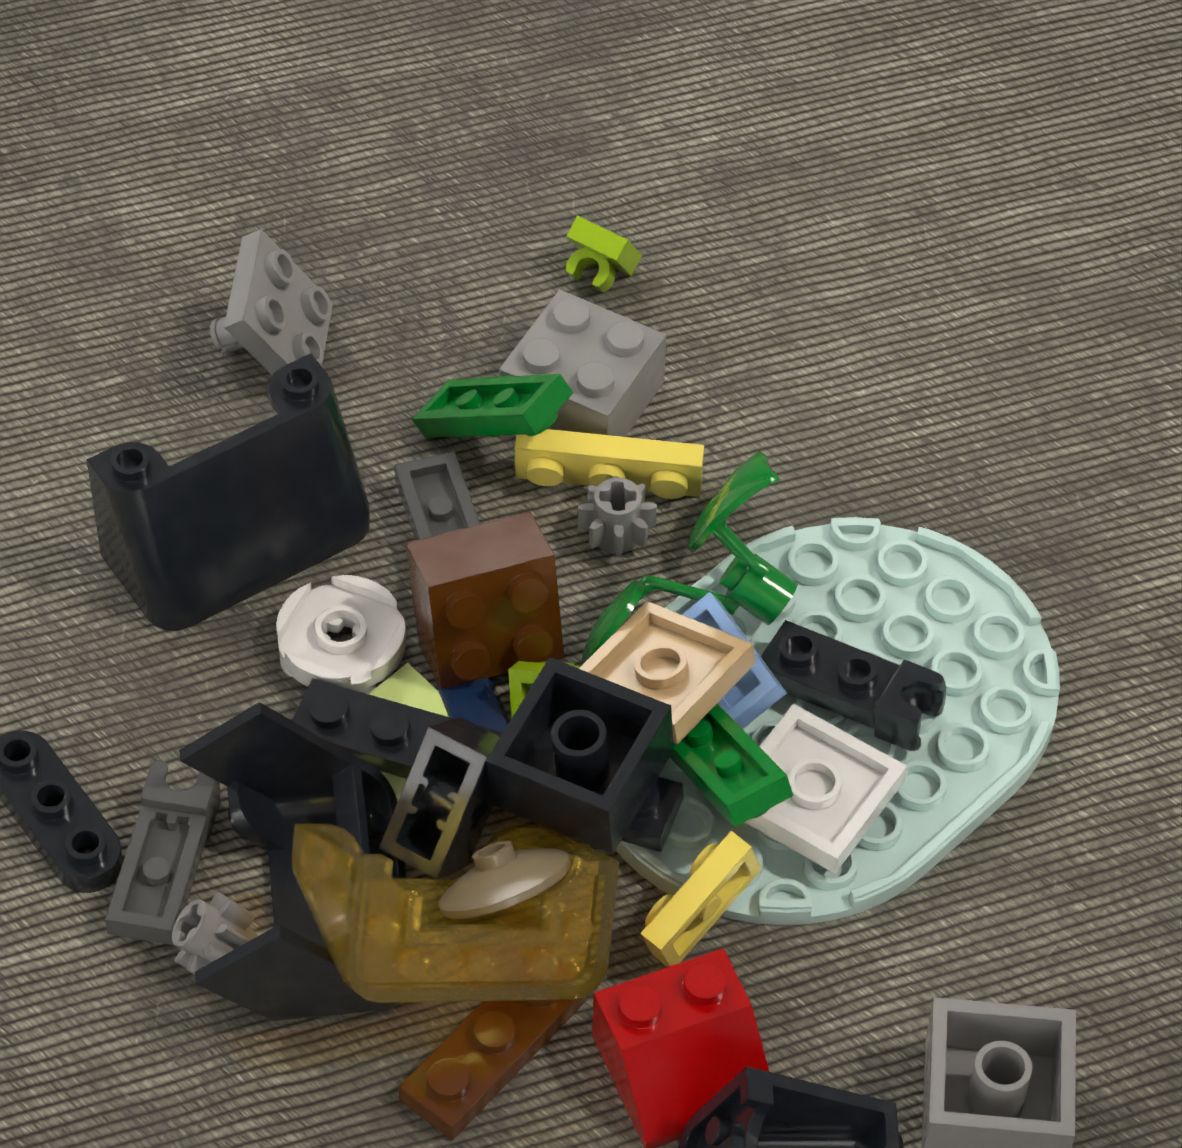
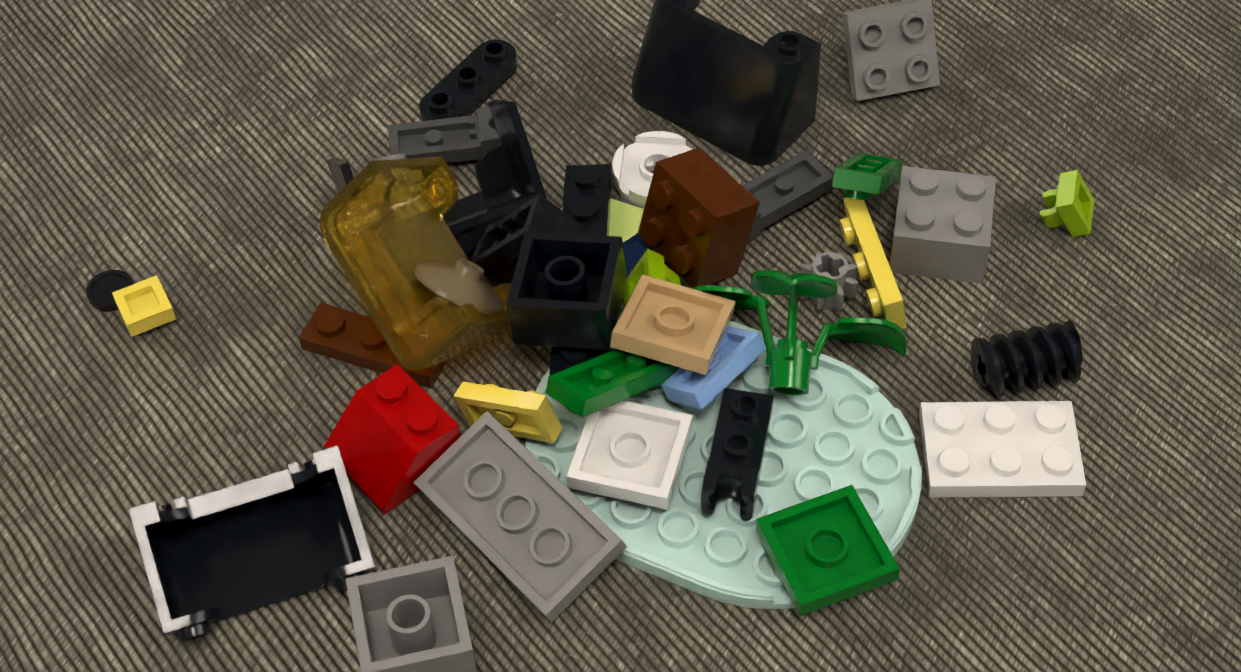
camera: 75 degrees right, 0 degrees up
(818, 372) = (1028, 357): none -> black piece
(859, 934) = (520, 516): none -> light grey plate
(915, 450) = (1001, 449): none -> white plate
(1022, 641) = (826, 549): none -> green plate

